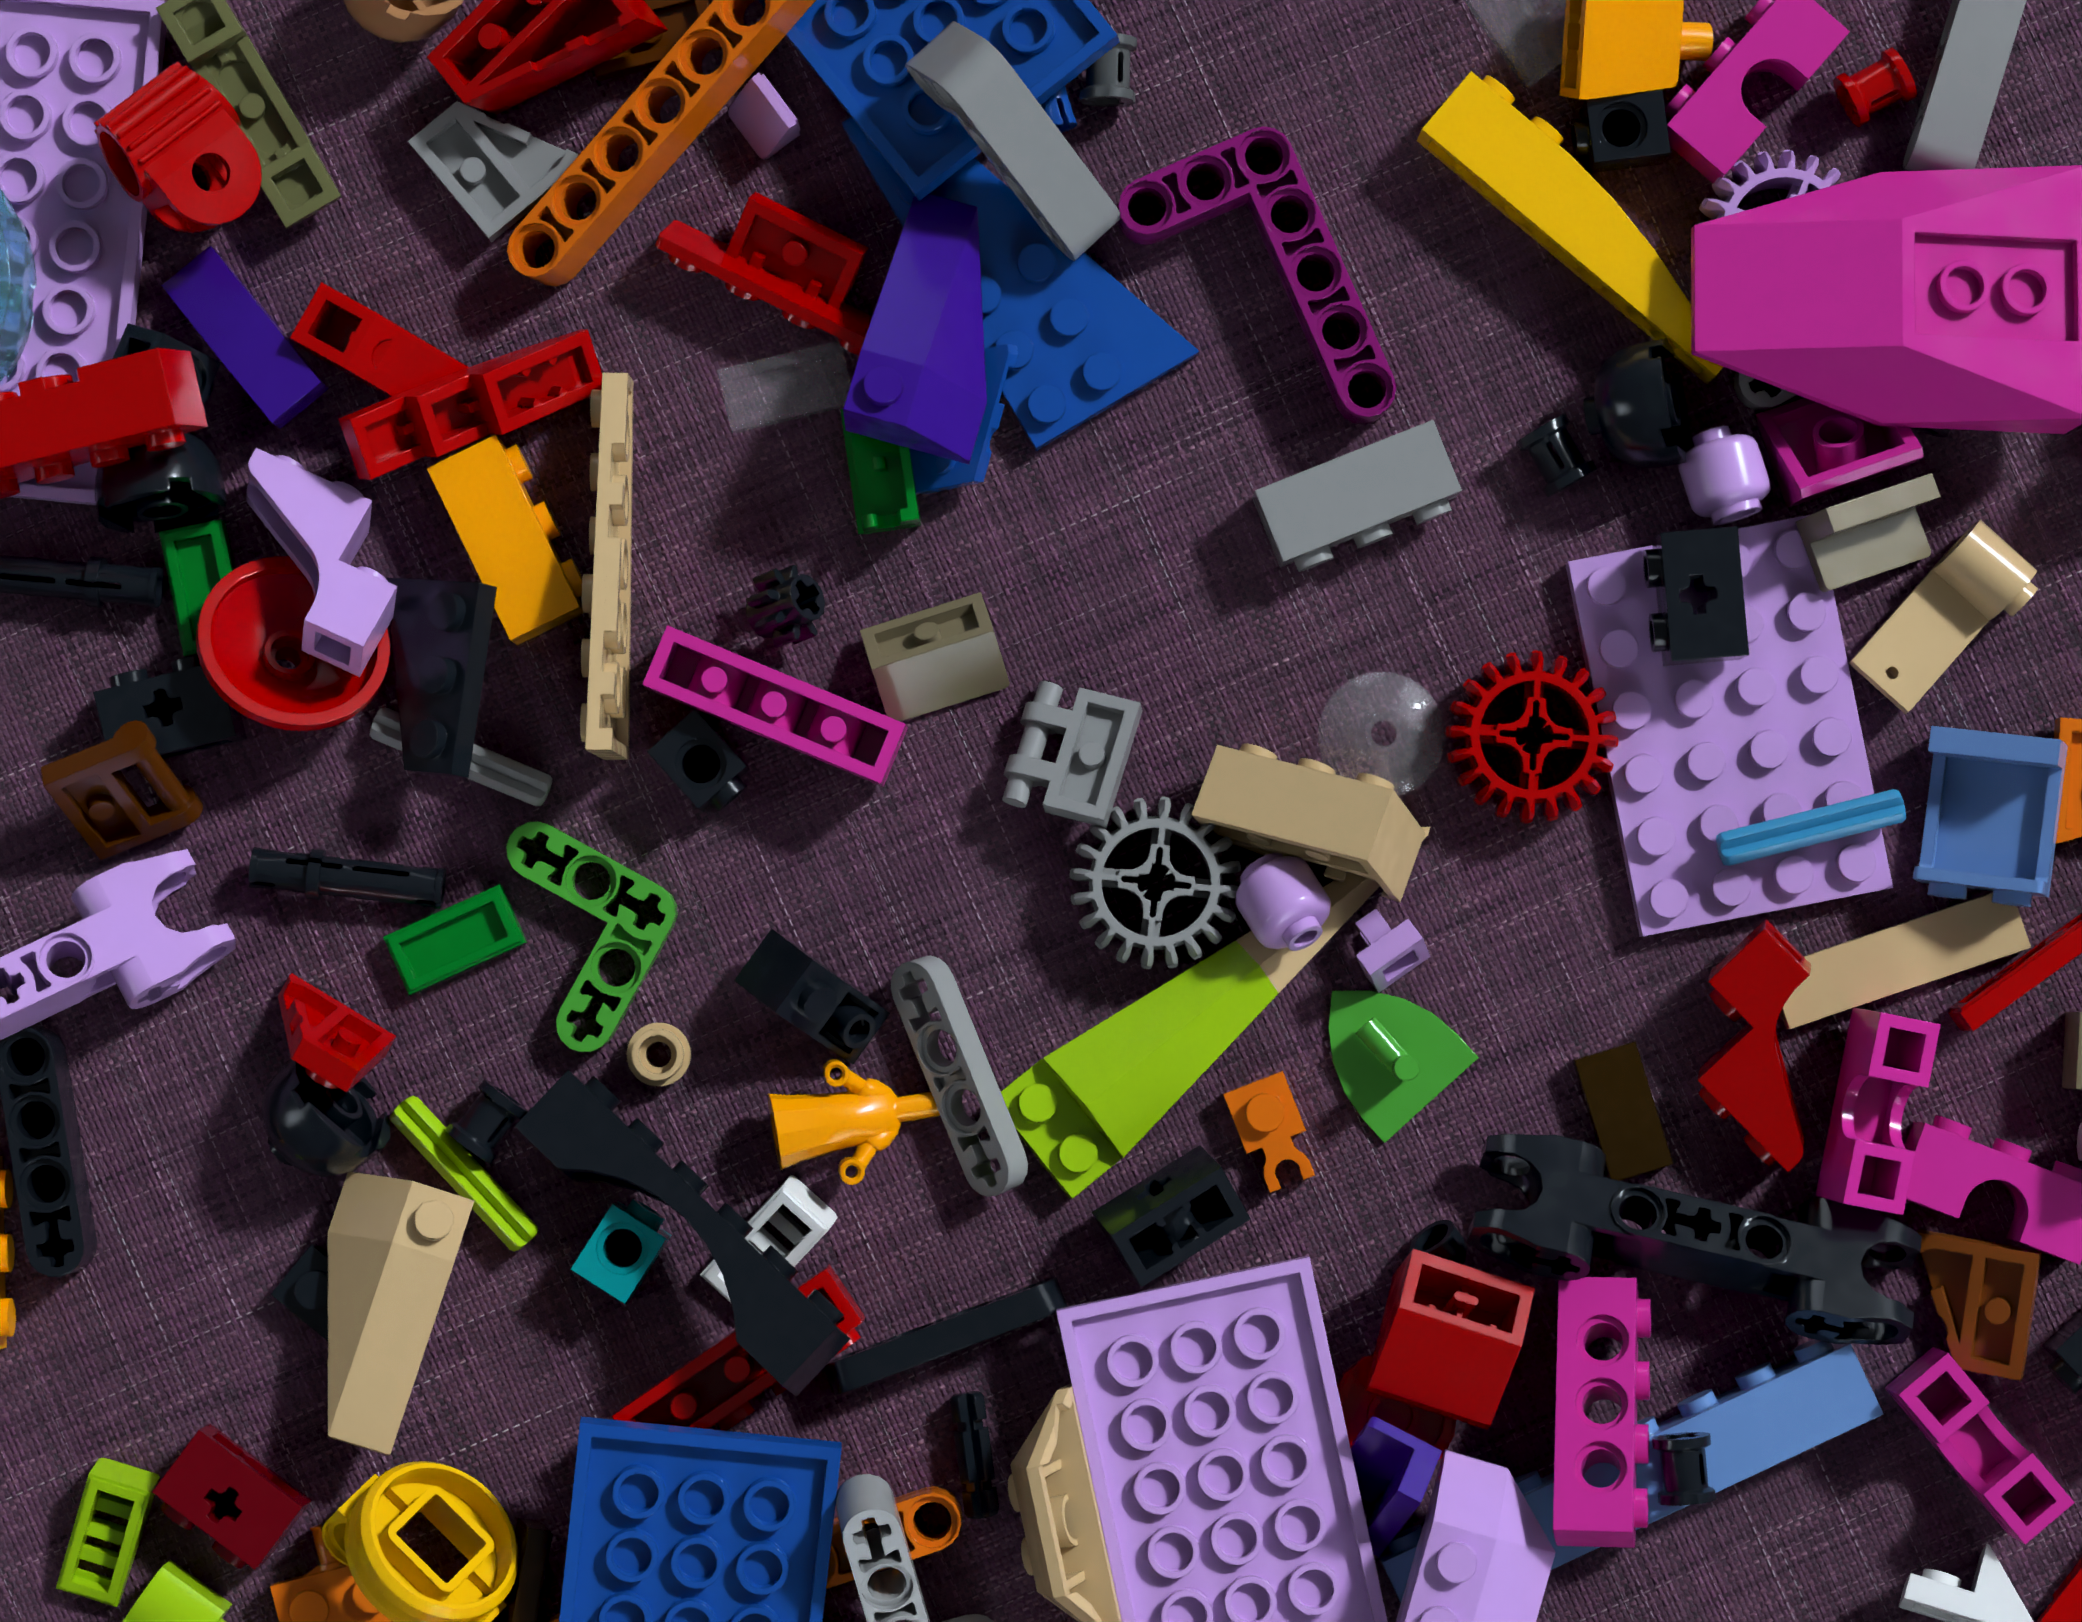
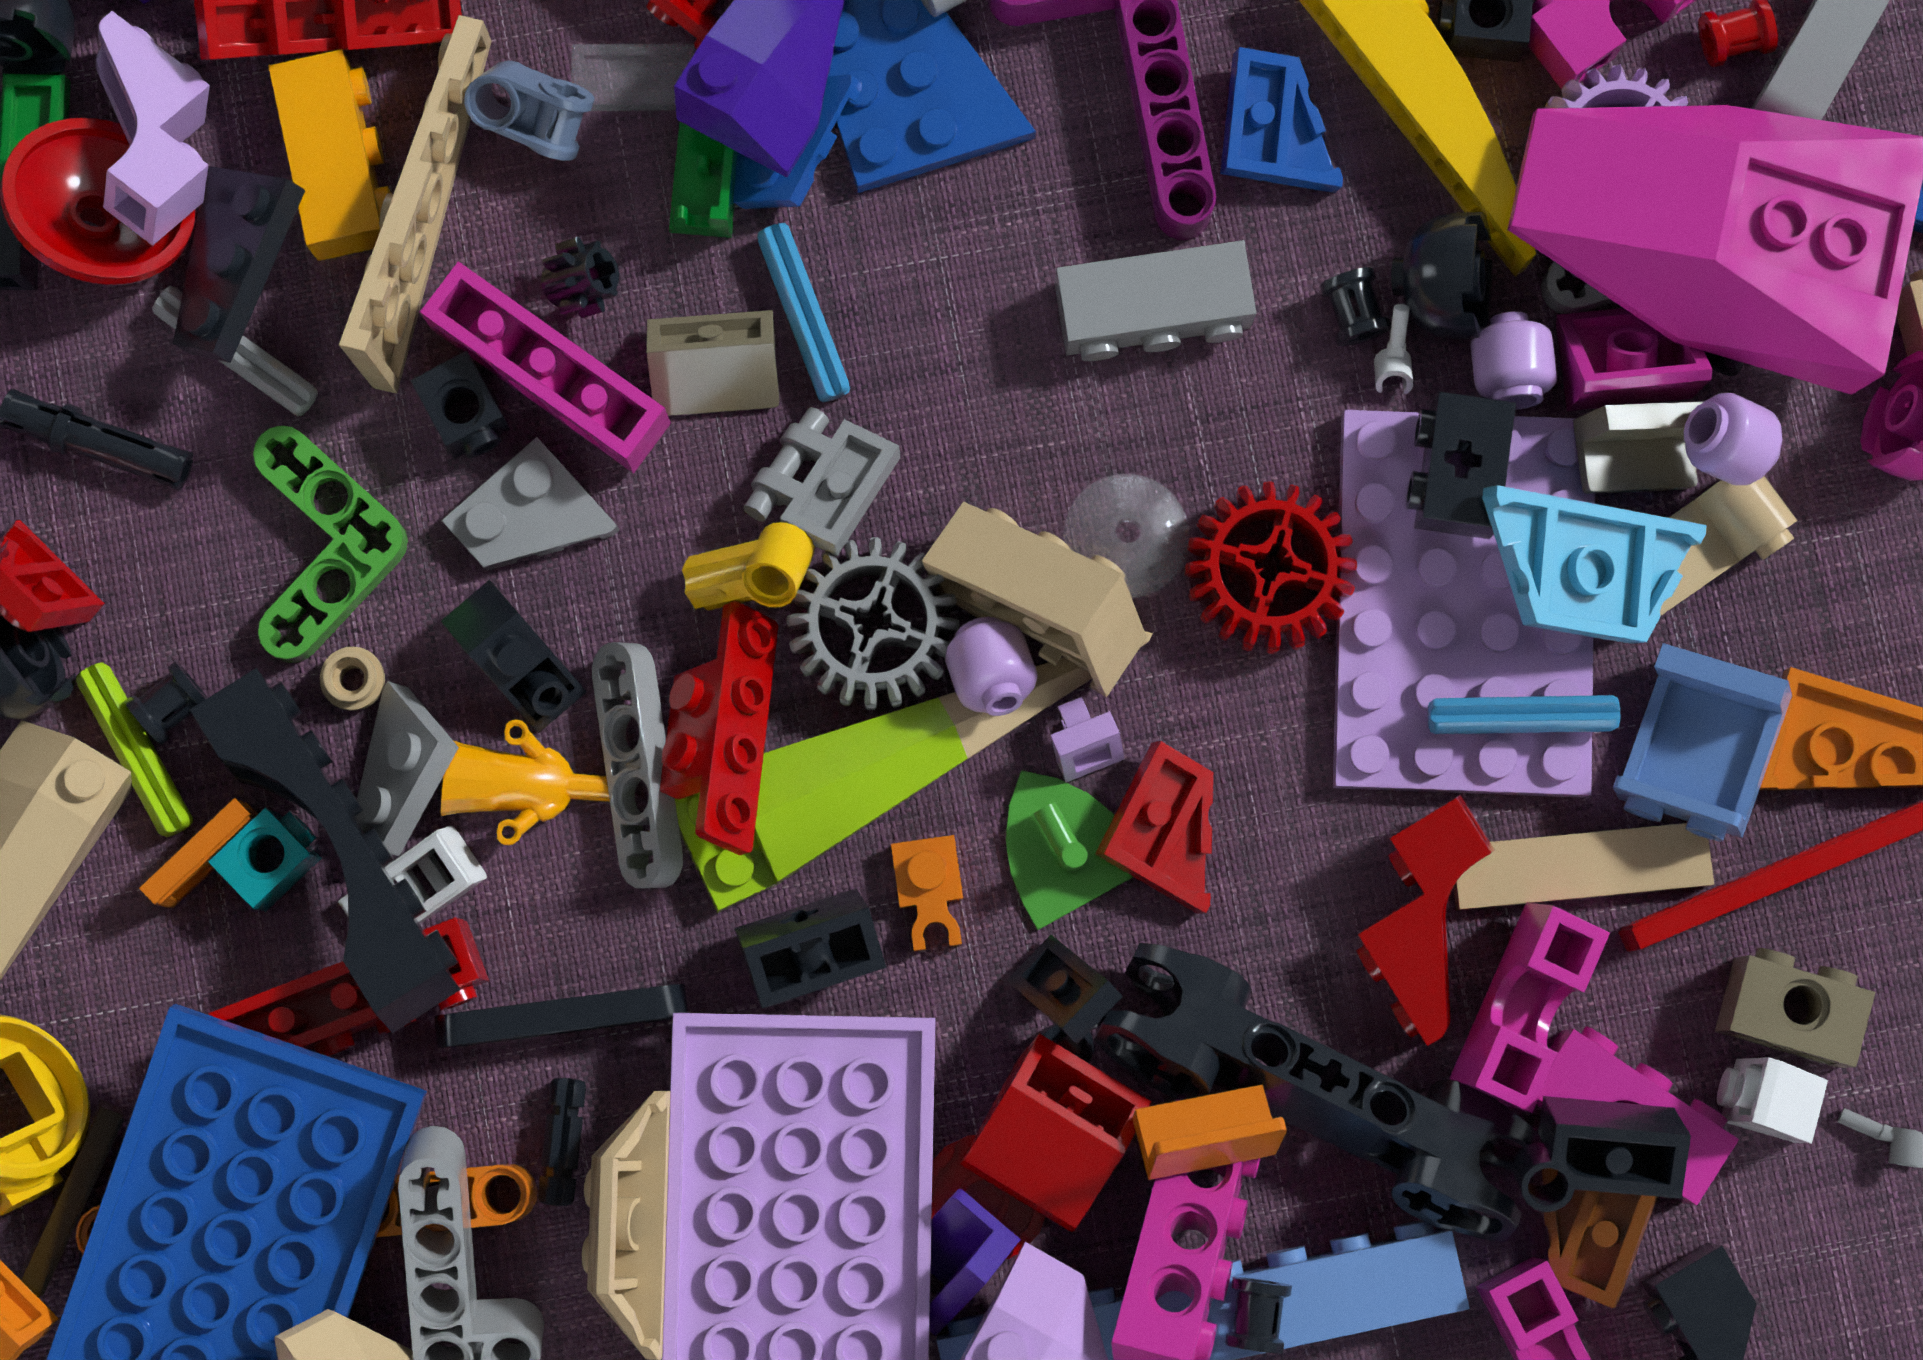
camera: 10 degrees right, 5 degrees down
(455, 939) = (184, 524): green tile -> none
(558, 1261) = (191, 862): none -> orange tile
(698, 447) = (542, 110): none -> sand blue piece
(732, 1130) = (401, 767): none -> light grey wing
(789, 849) = (527, 511): none -> light grey wing
(1012, 587) = (803, 312): none -> dark azure axle
(1033, 1023) = (721, 729): none -> red bracket
(1038, 859) = (755, 570): none -> yellow piece
(1426, 1198) = (1064, 989): none -> black plate
(1433, 289) = (1273, 125): none -> blue wing
(1484, 1015) = (1165, 827): none -> red wing
(1596, 1306) = (1207, 1132): none -> orange panel
(1606, 499) = (1395, 358): none -> white hand
(1622, 1111) = (1278, 952): dark brown tile -> none
(1843, 666) = (1587, 563): none -> medium azure wing
(1957, 512) = (1733, 439): none -> lavender head
(1979, 1237) = (1604, 1150): none -> black hinge

